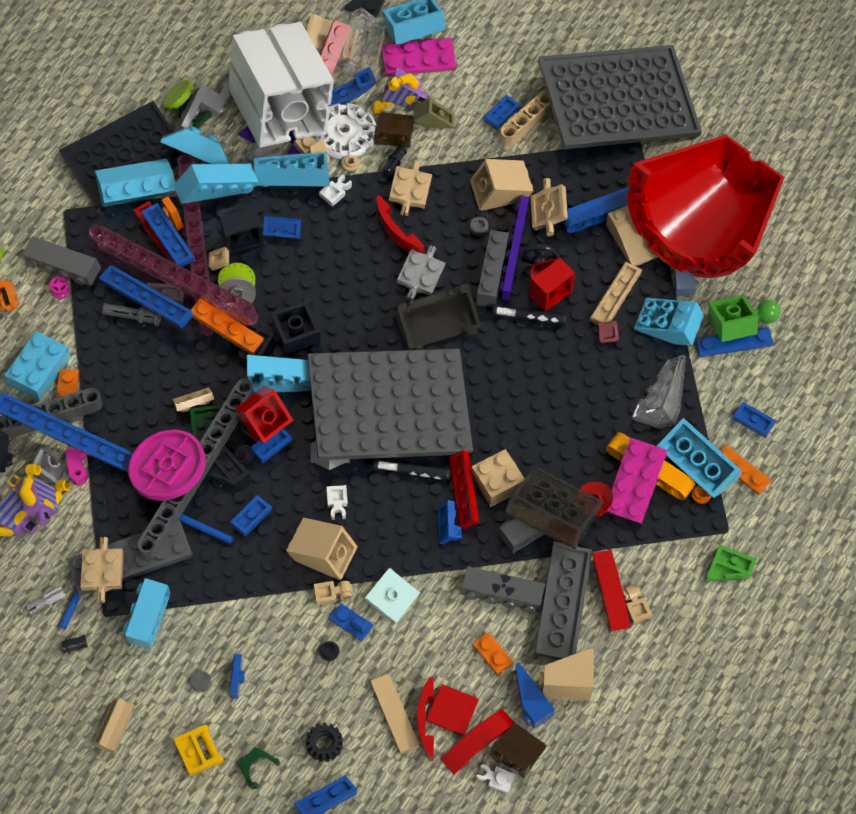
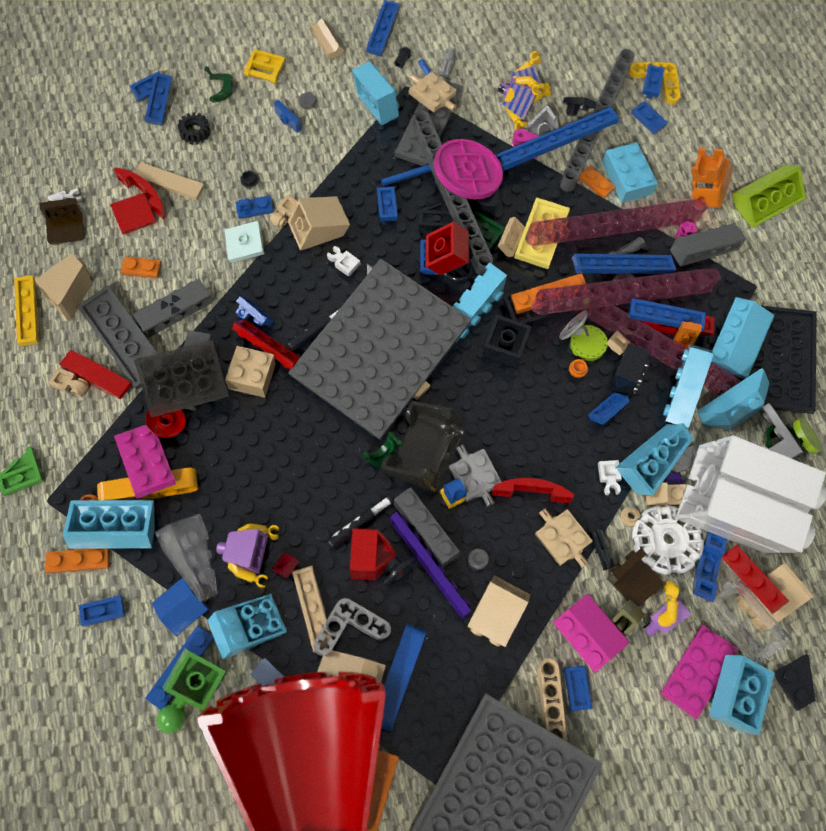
camera: 130 degrees right, 5 degrees up
(54, 690) = (382, 28): none -> blue plate
(111, 338) = (614, 222): none -> clear pink beam
(166, 382) = (542, 254): none -> light yellow plate
(266, 271) = (578, 368): none -> orange plate
(450, 271) = (453, 493): none -> blue leg
(455, 337) = (389, 446): none -> dark green helmet
(460, 125) = (591, 632): none -> dark pink slope
(477, 740) = (96, 211): red slope -> none
(534, 704) = (93, 261): blue slope -> none
(548, 207) = (440, 626): tan plate -> none
(603, 267) = (343, 619): none -> light grey beam
(616, 697) = (26, 310): none -> yellow plate
(624, 361) = (246, 549): none -> medium lavender torso
(702, 376) = (179, 607): none -> blue slope

